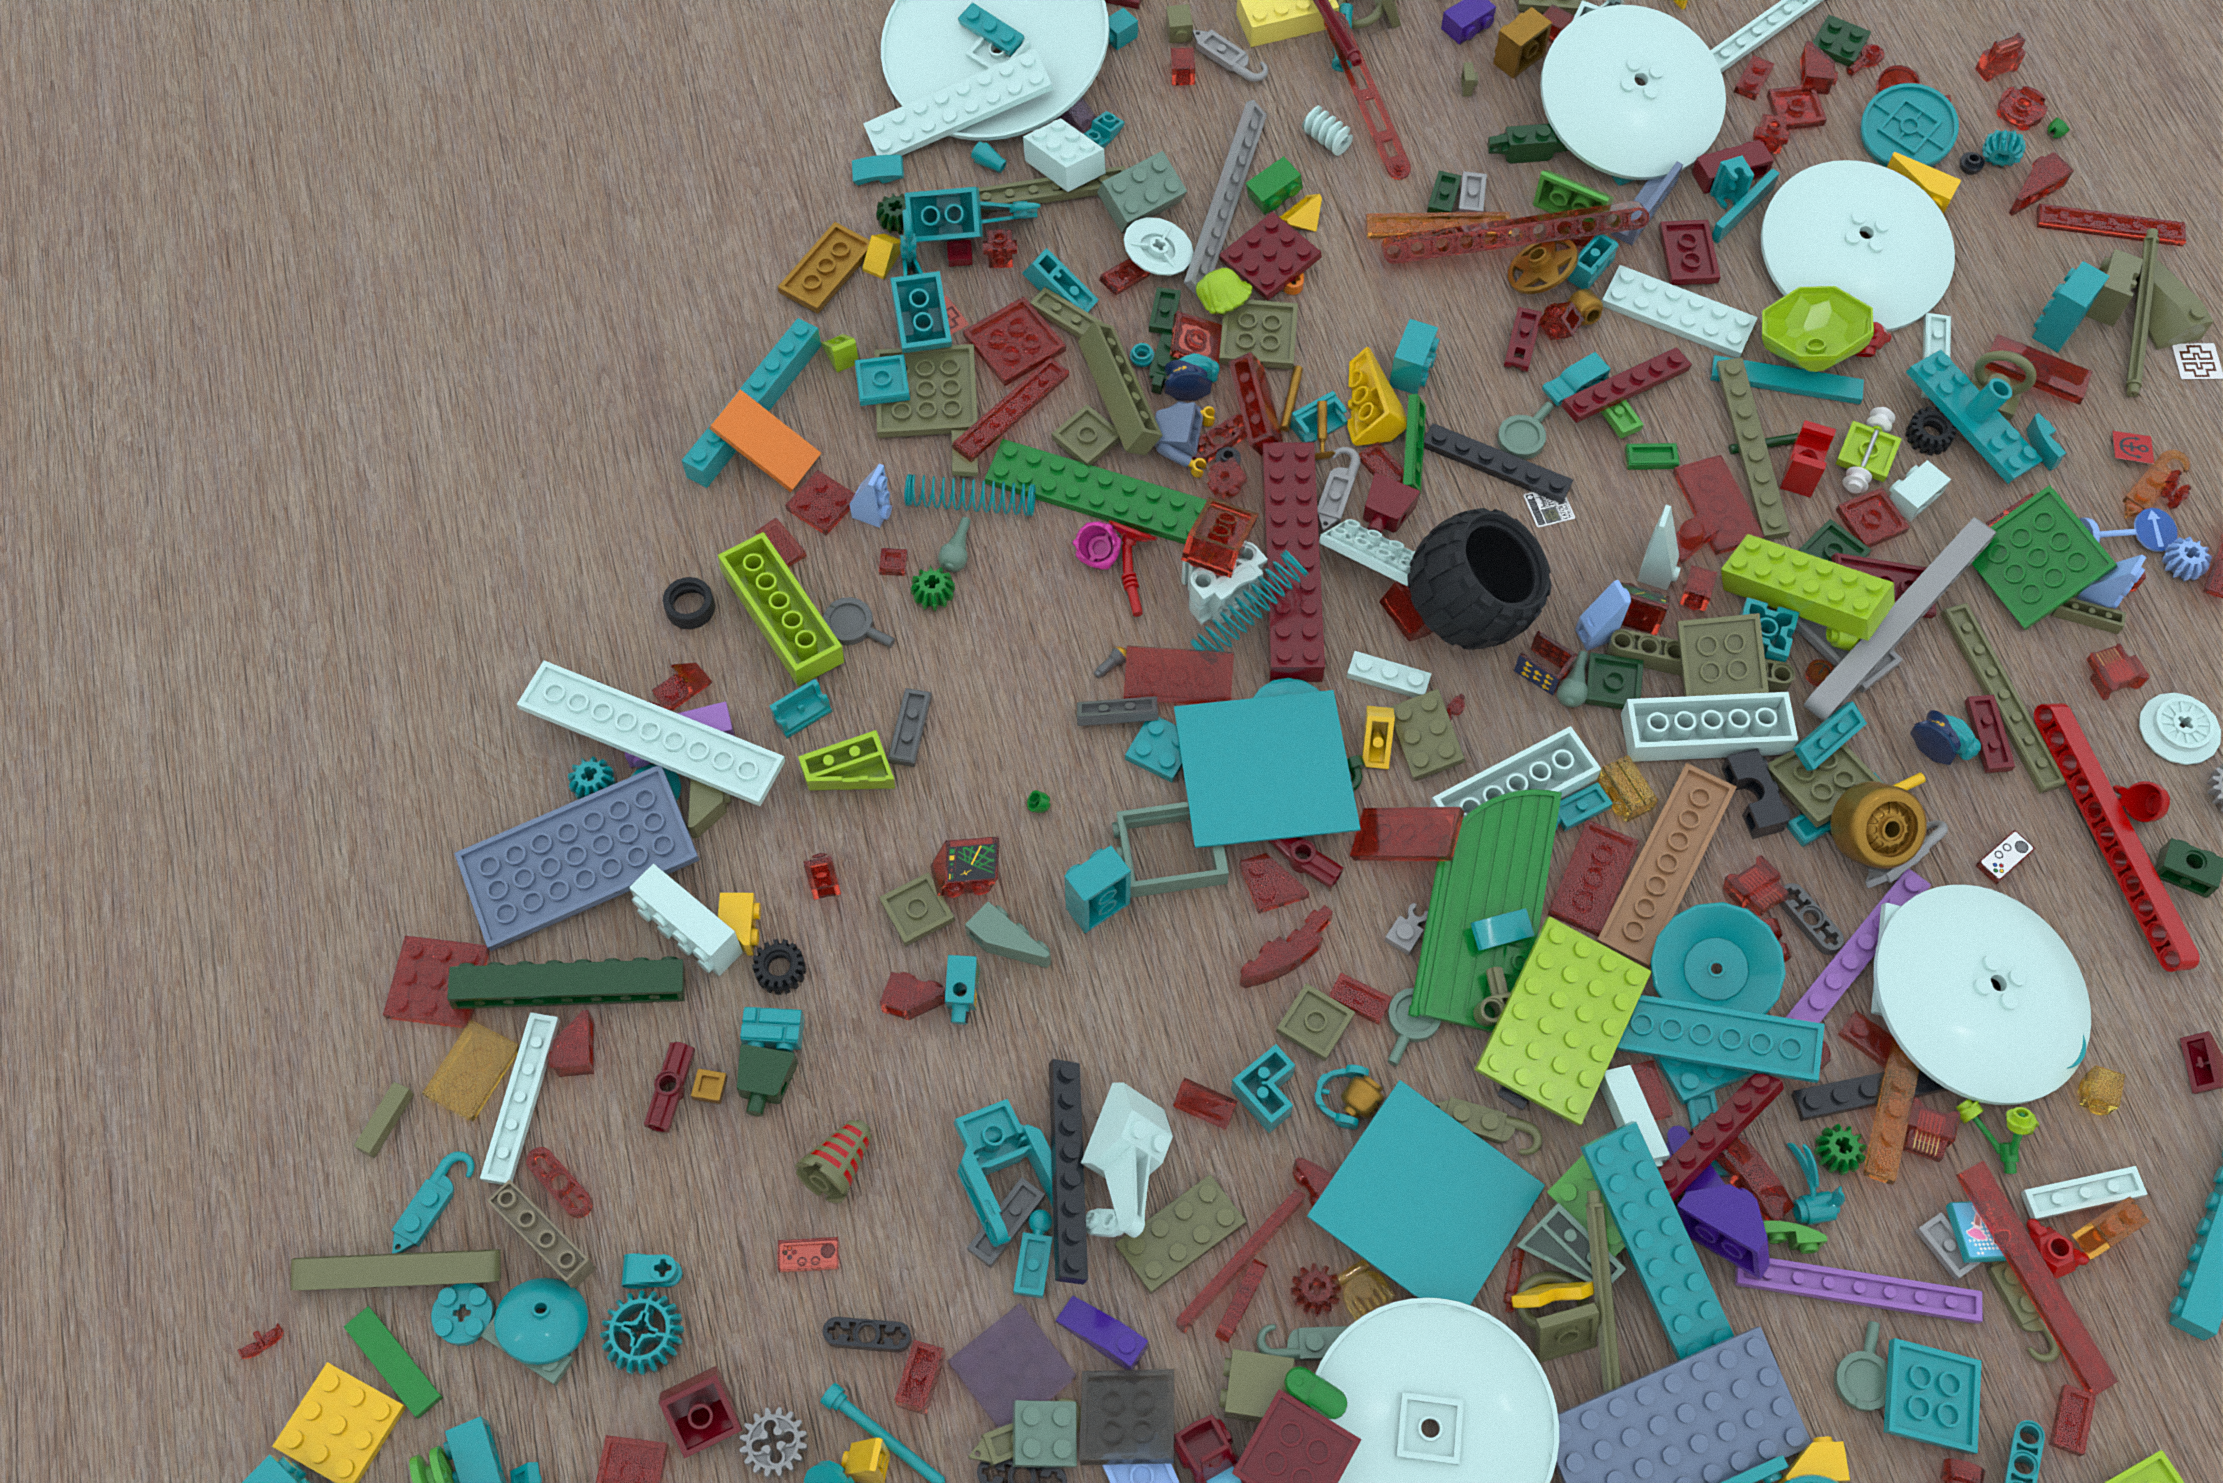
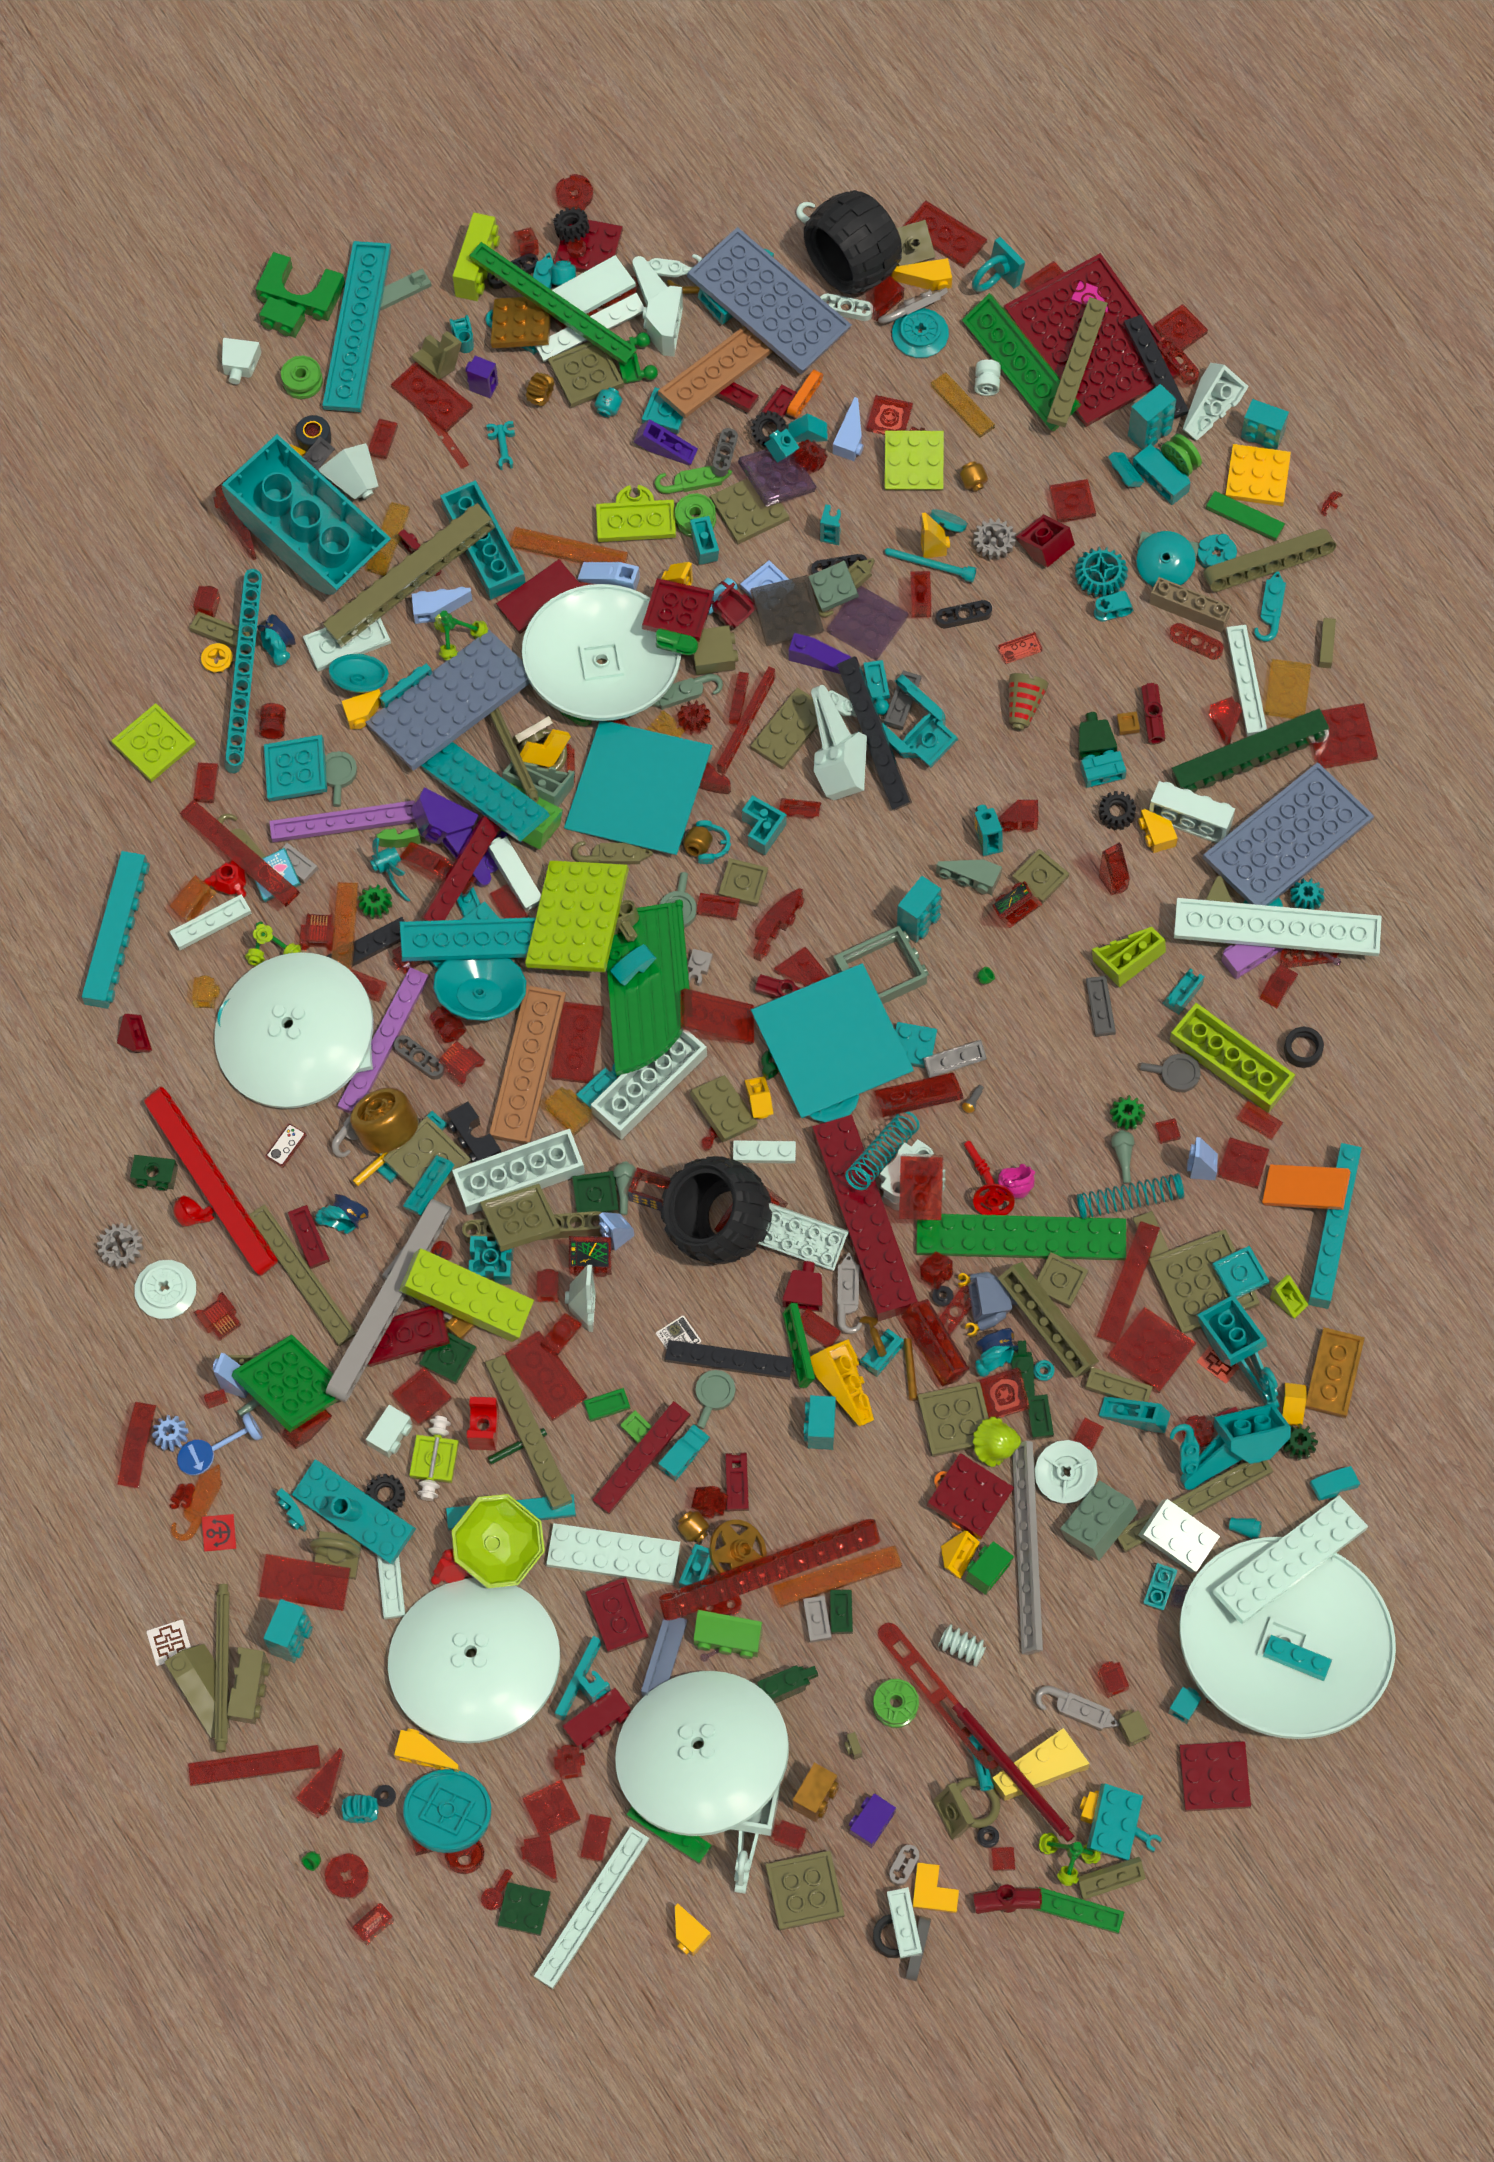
camera: 165 degrees right, 5 degrees up
(1413, 102) = (890, 1715): none -> bright green wheel

